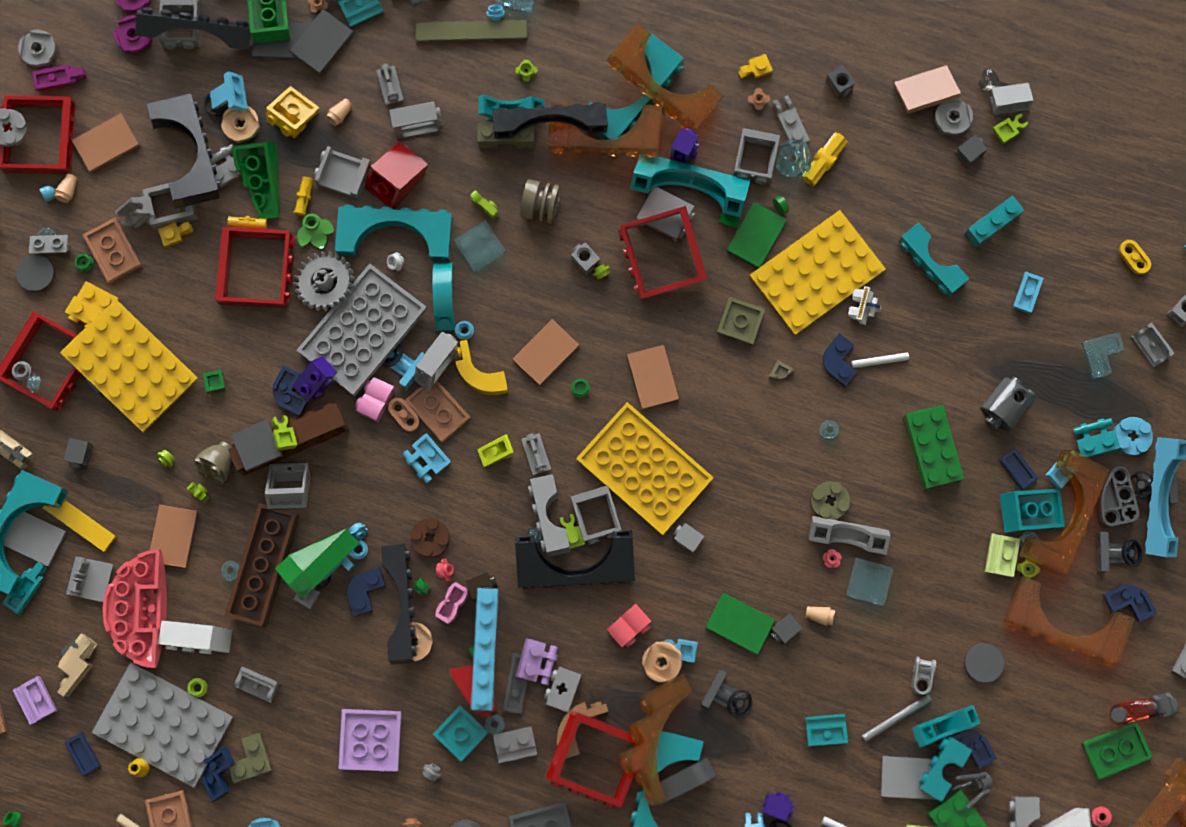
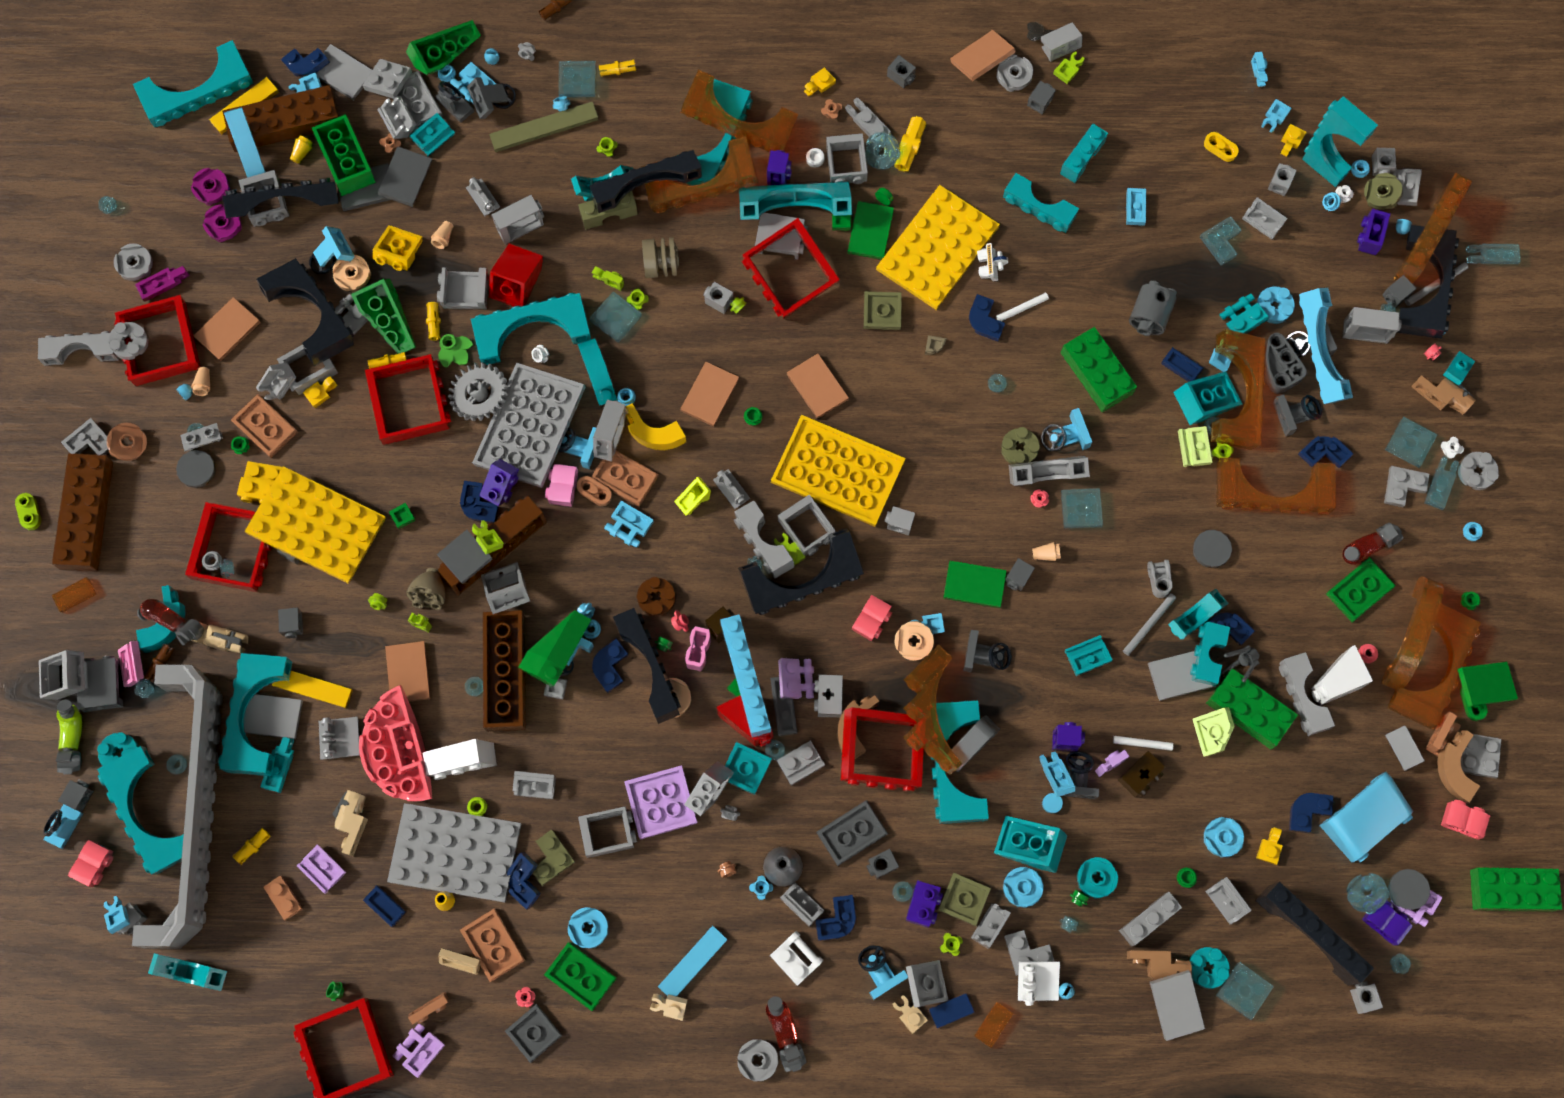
camera: 20 degrees left, 5 degrees down
(290, 749) = (586, 833): none -> light grey window
(417, 744) = (707, 789): none -> light grey window
(507, 229) = (637, 293): none -> lime plate
(726, 144) = (815, 157): none -> white tile
(881, 502) = (1068, 434): none -> medium azure piece

